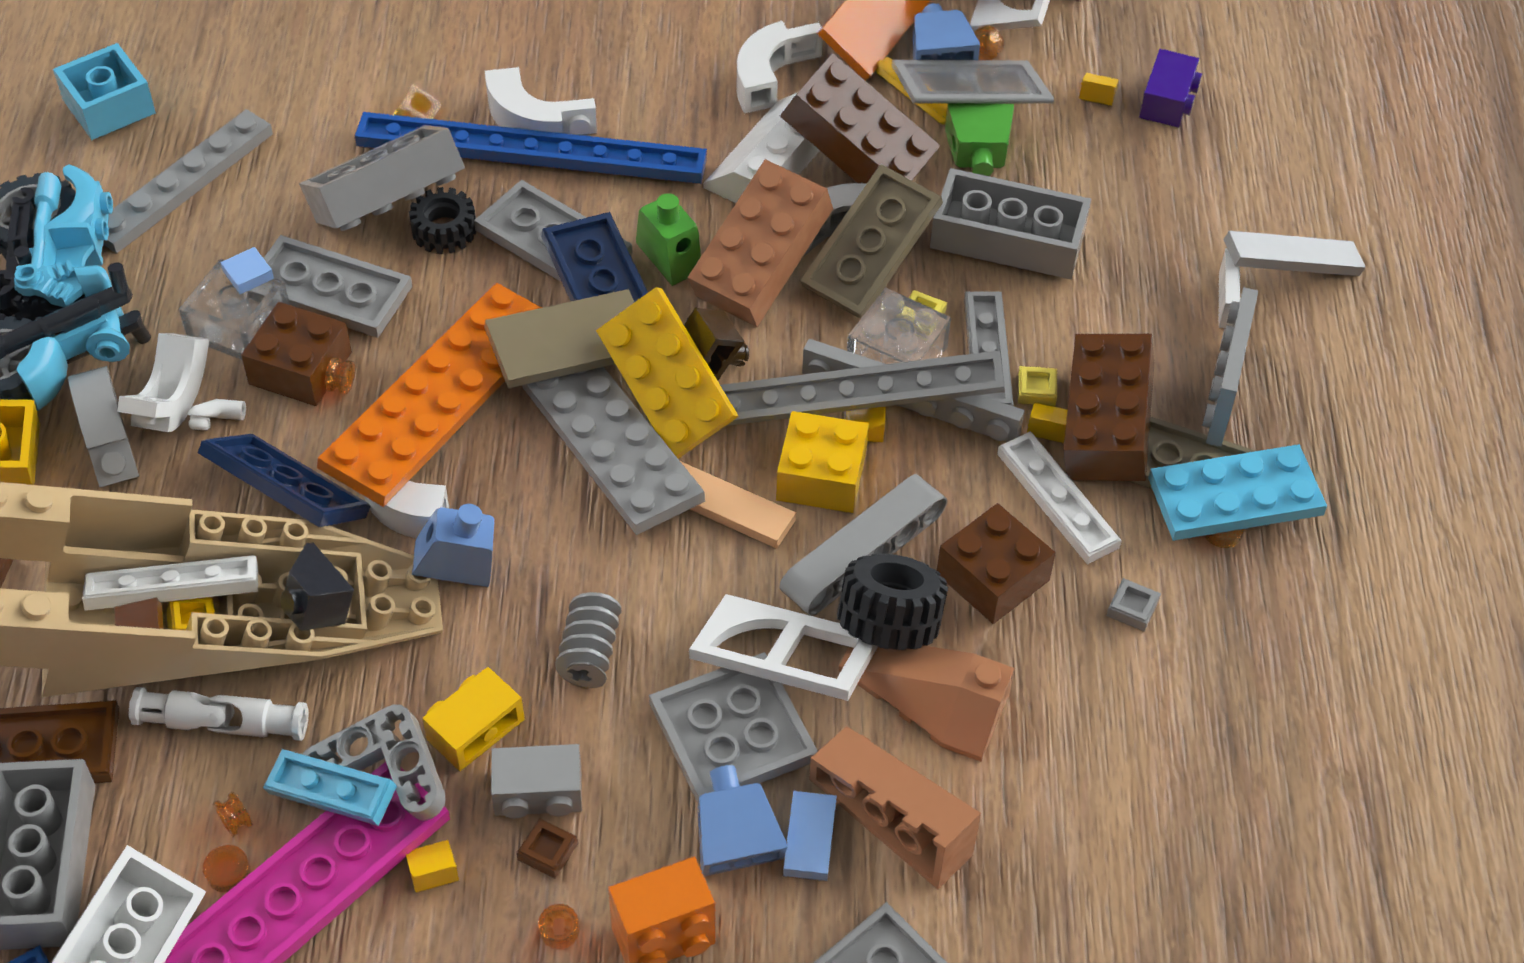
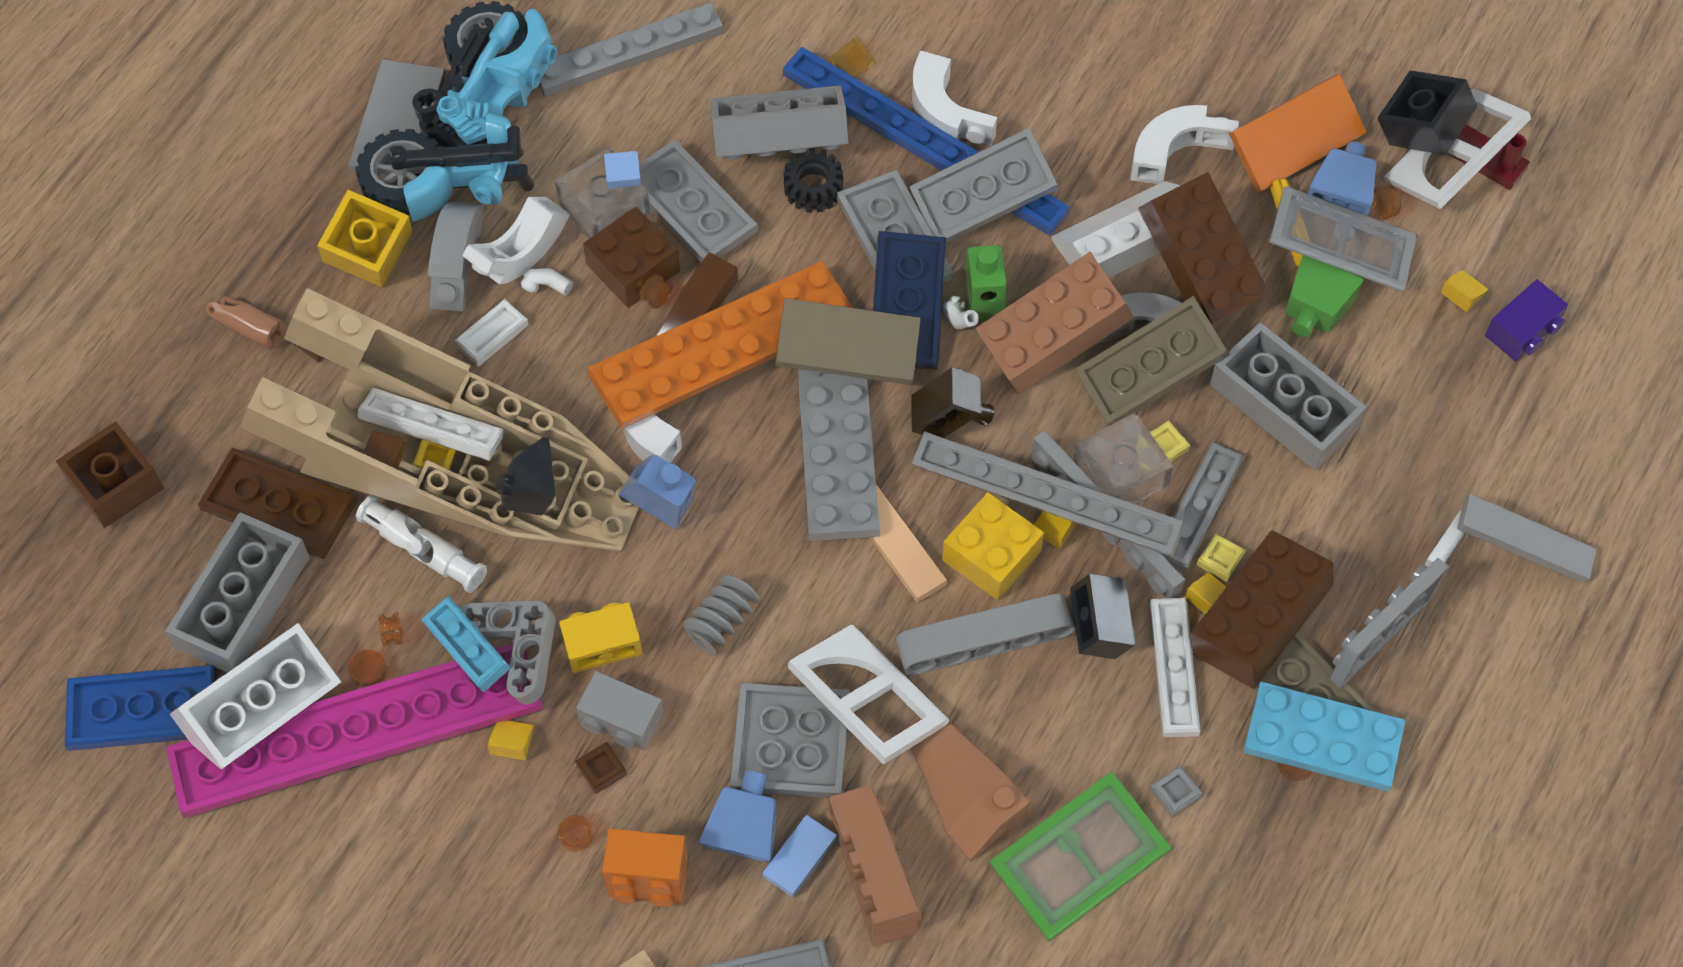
camera: 30 degrees right, 10 degrees up
(185, 476) = (491, 332): none -> white tile
(284, 479) = (560, 366): dark blue tile -> none
(392, 352) = (703, 291): none -> reddish brown slope
(619, 157) = (984, 186): none -> light grey plate
(665, 281) = (953, 312): none -> white arm
(667, 372) = (905, 411): yellow plate -> none
(892, 601) = (969, 698): black tyre -> none
(966, 475) = (1102, 616): none -> brick
(995, 563) = (1079, 702): reddish brown brick -> none
(1084, 704) = (1080, 856): none -> clear door

